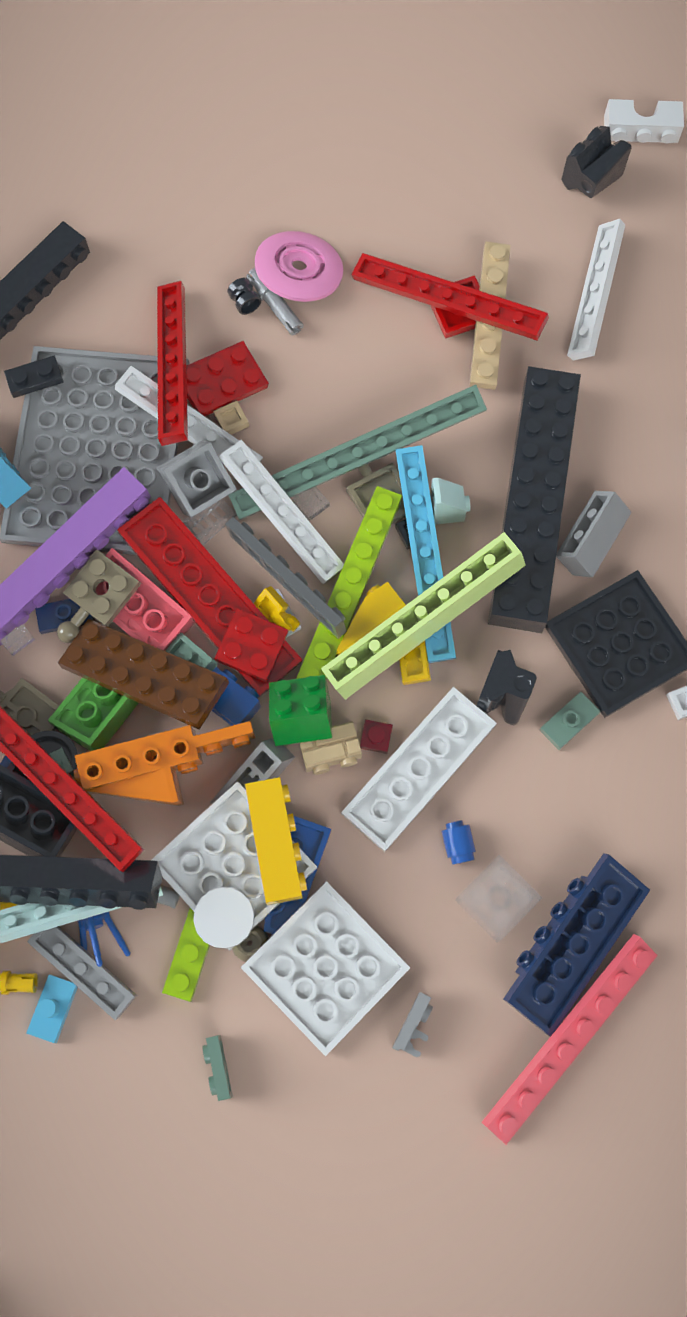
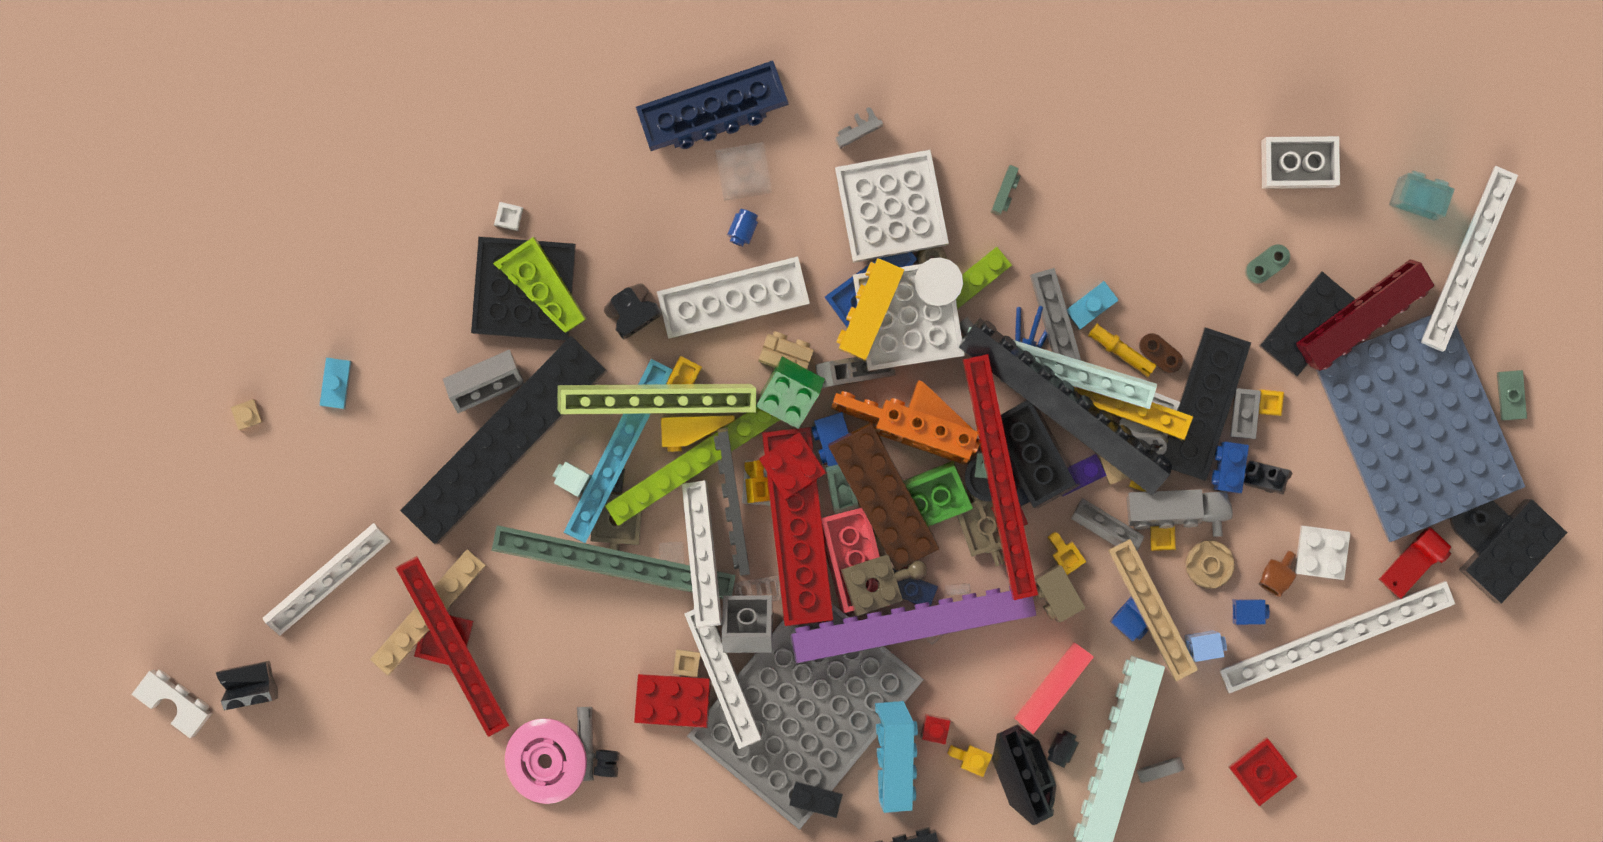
camera: 155 degrees left, 15 degrees up
(171, 364) = (704, 733): red plate -> none
(376, 736) = (747, 342): dark red plate -> none
(569, 720) = (601, 259): sand green plate -> none
(569, 1039) = (760, 51): coral plate -> none
(617, 657) = (539, 280): none -> lime wing

